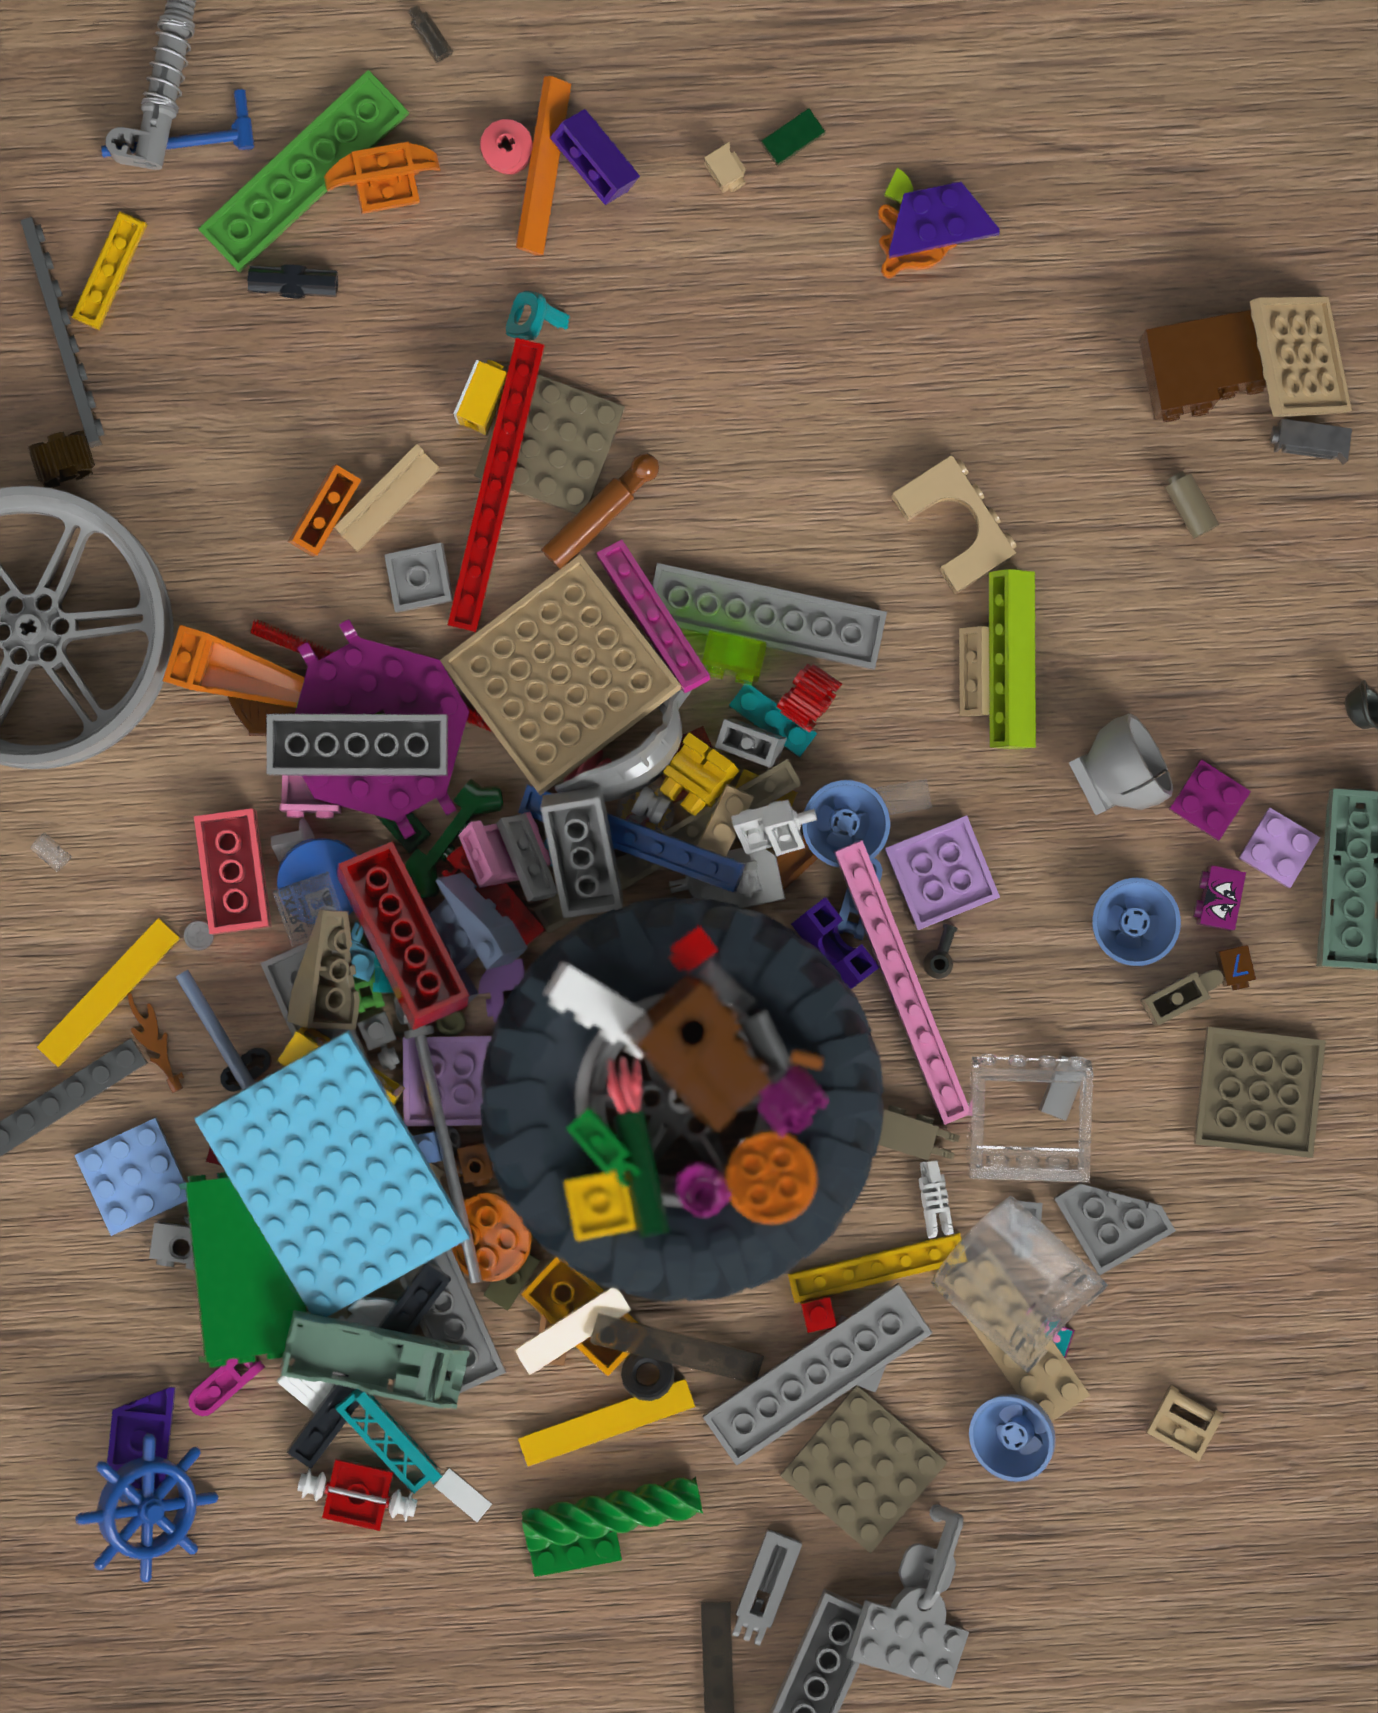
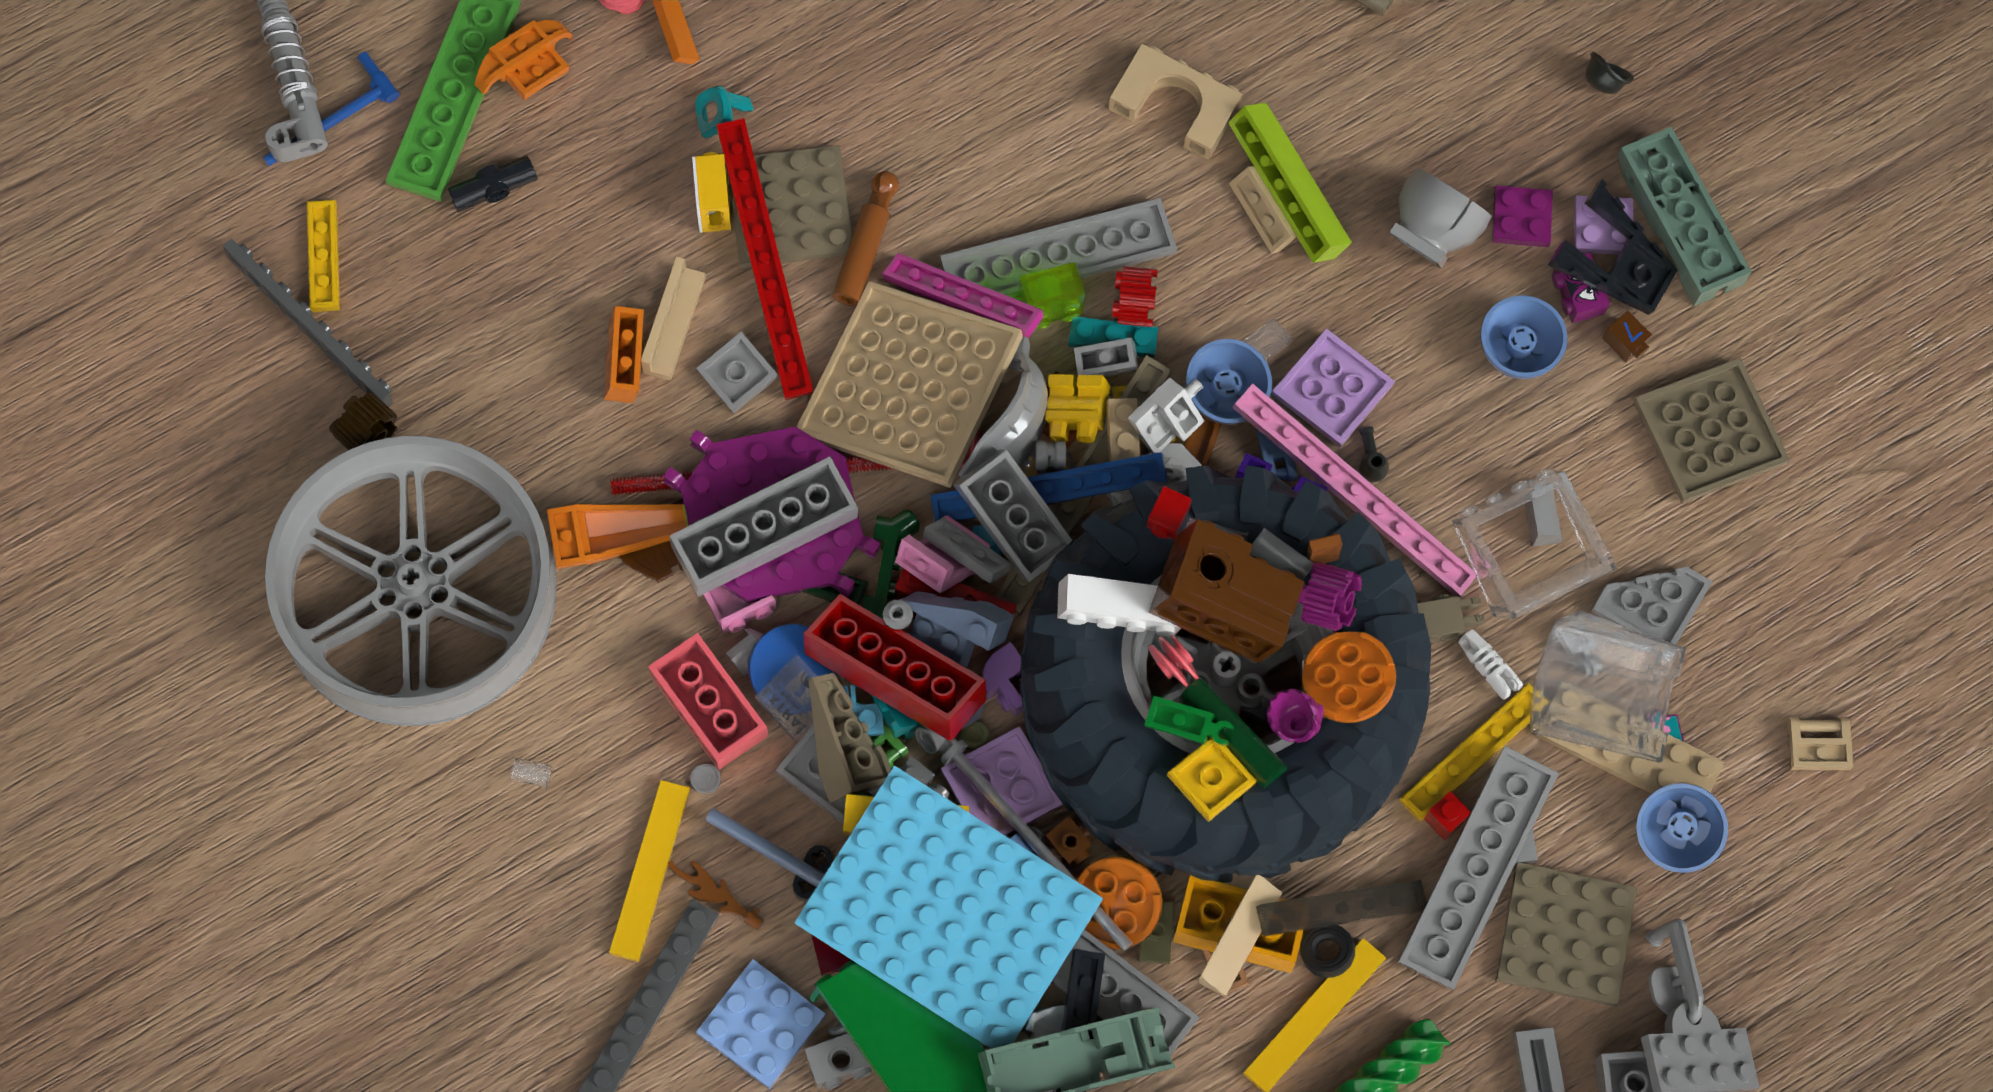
camera: 30 degrees left, 15 degrees down
(428, 891) = (897, 614): none -> light grey plate
(1181, 995) = (1596, 382): dark tan hinge -> none
(1280, 913) = (1640, 270): none -> black wing

